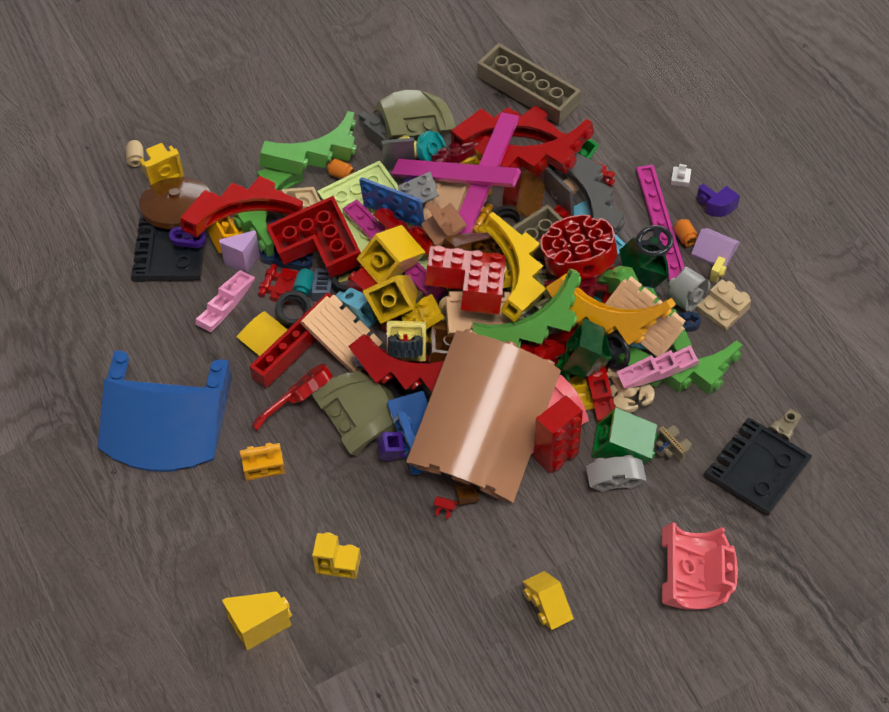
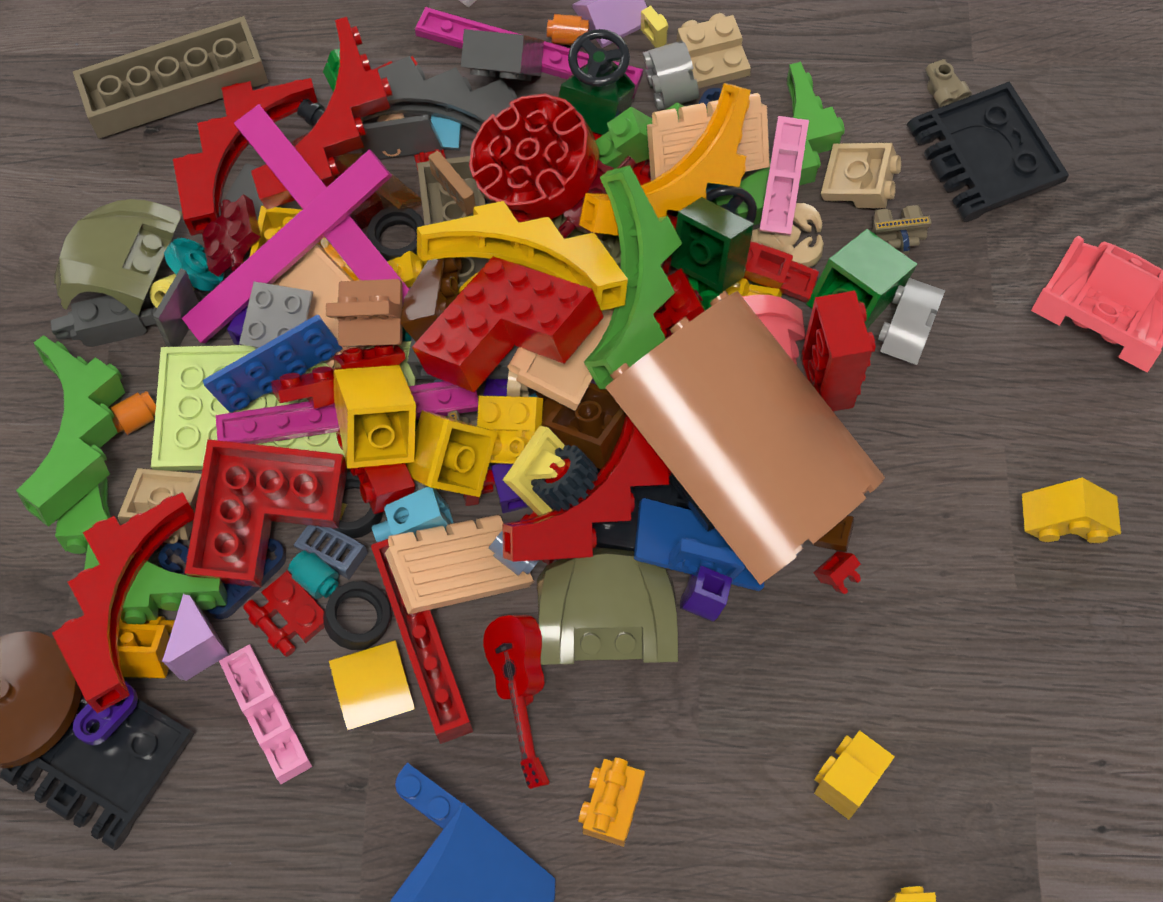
camera: 60 degrees left, 10 degrees up
(542, 221) = (452, 182): none -> medium nougat tile
(636, 204) = (502, 55): none -> dark grey brick
(694, 409) = (861, 174): none -> tan plate

